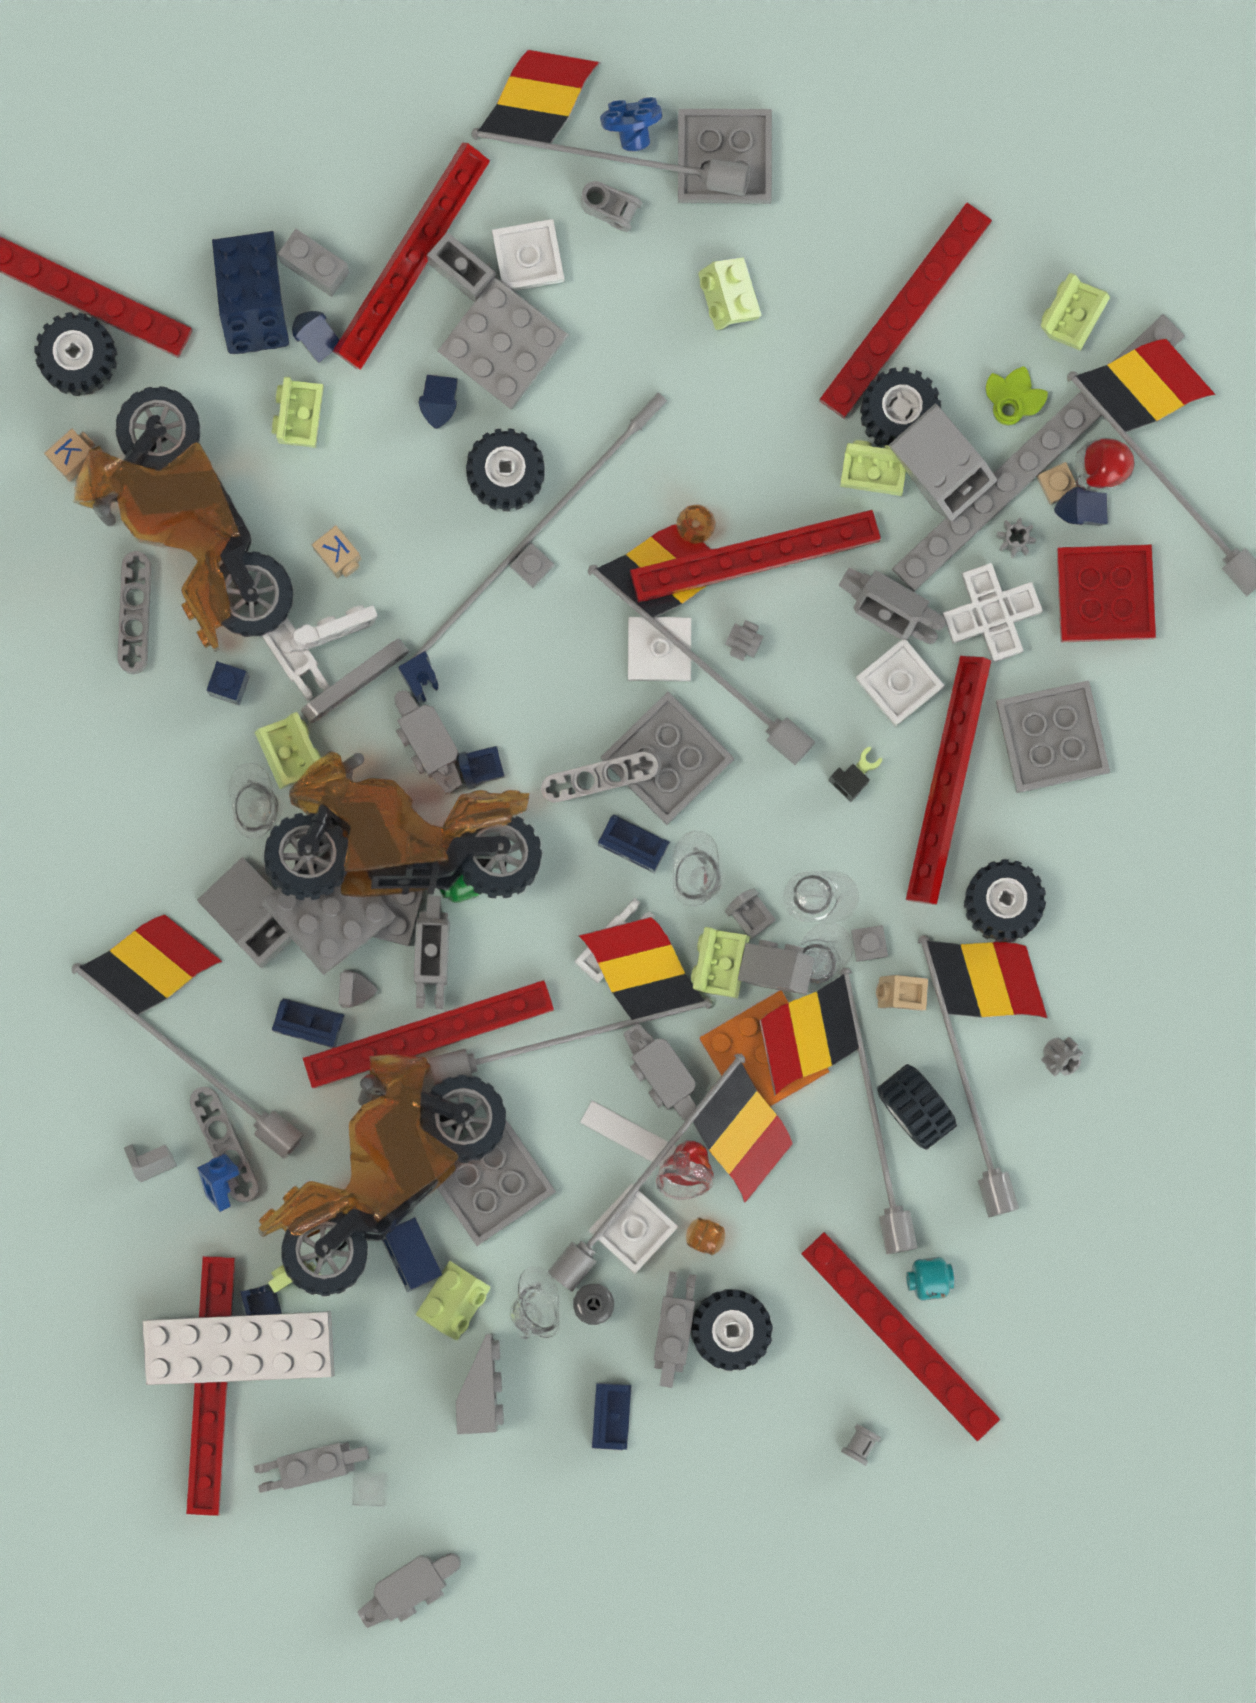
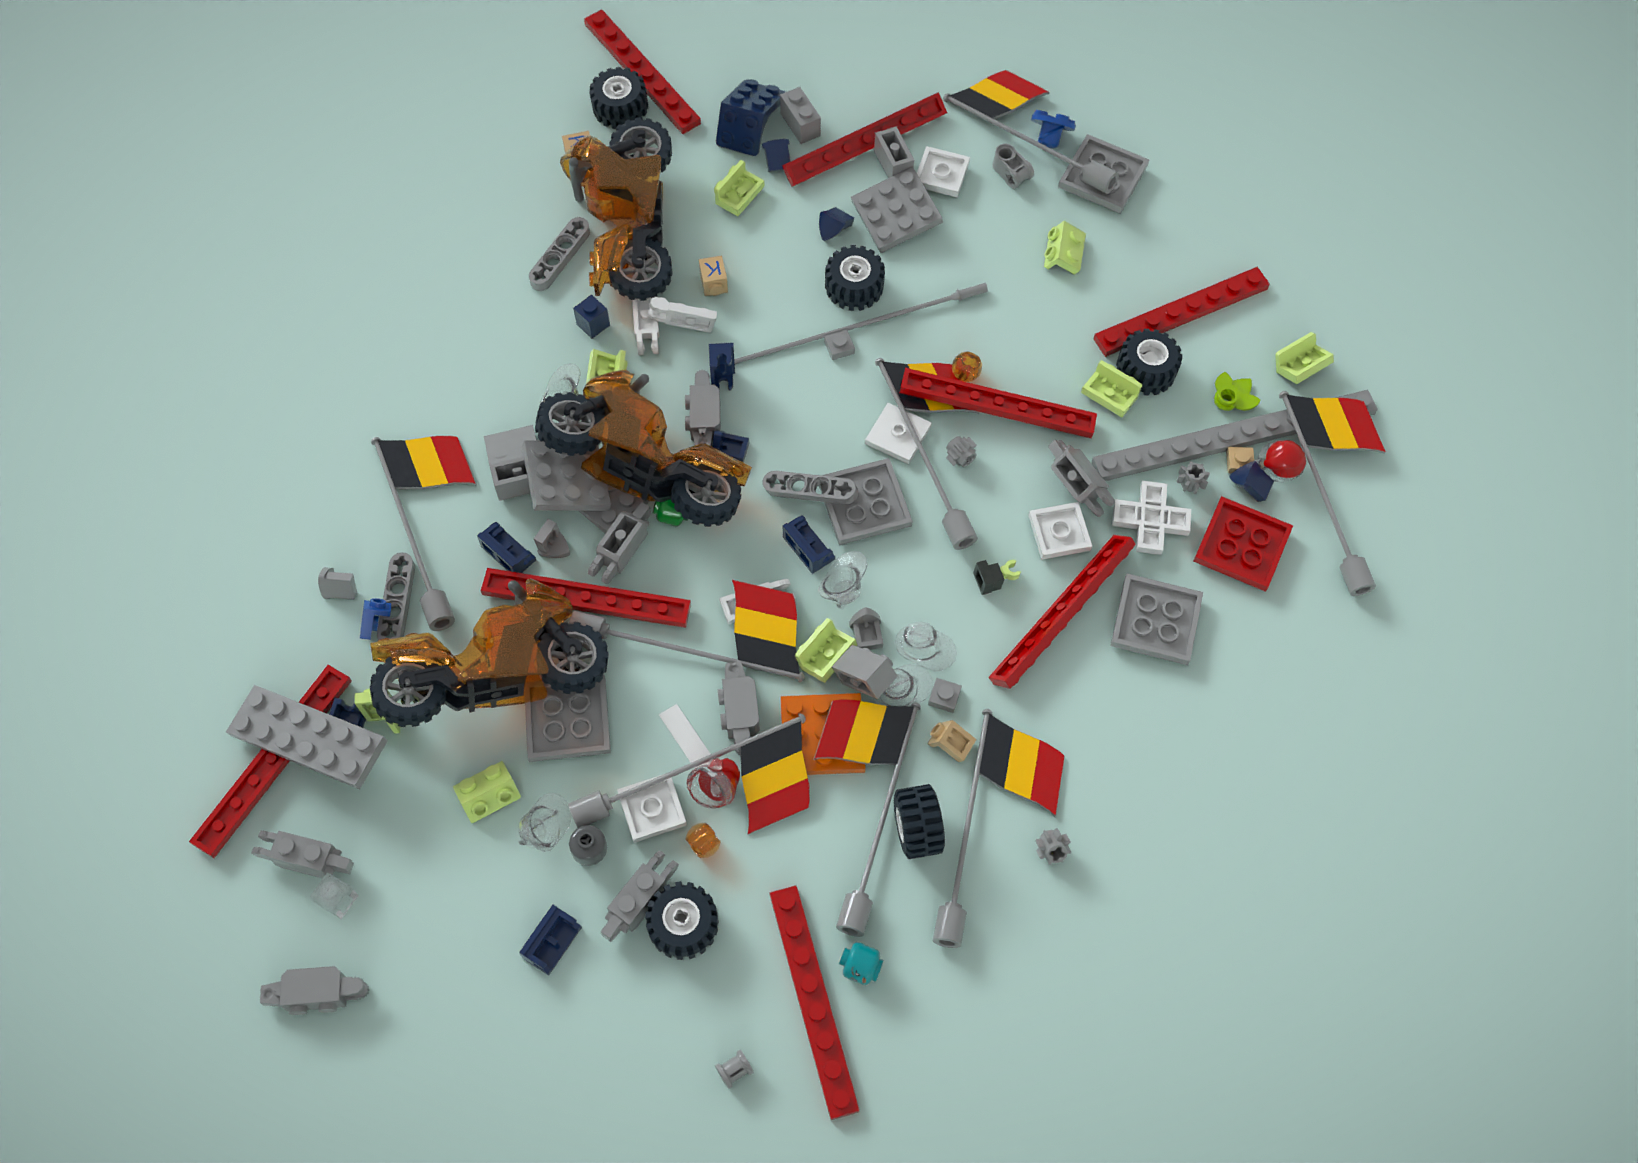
camera: 25 degrees right, 20 degrees down
(354, 681) = (677, 355): light grey beam -> none
(411, 1255) = (476, 741): dark blue hinge -> none
(477, 1400) = (460, 861): light grey slope -> none
(942, 463) = (1163, 399): light grey slope -> none
(1004, 900) = (1064, 711): black wheel -> none

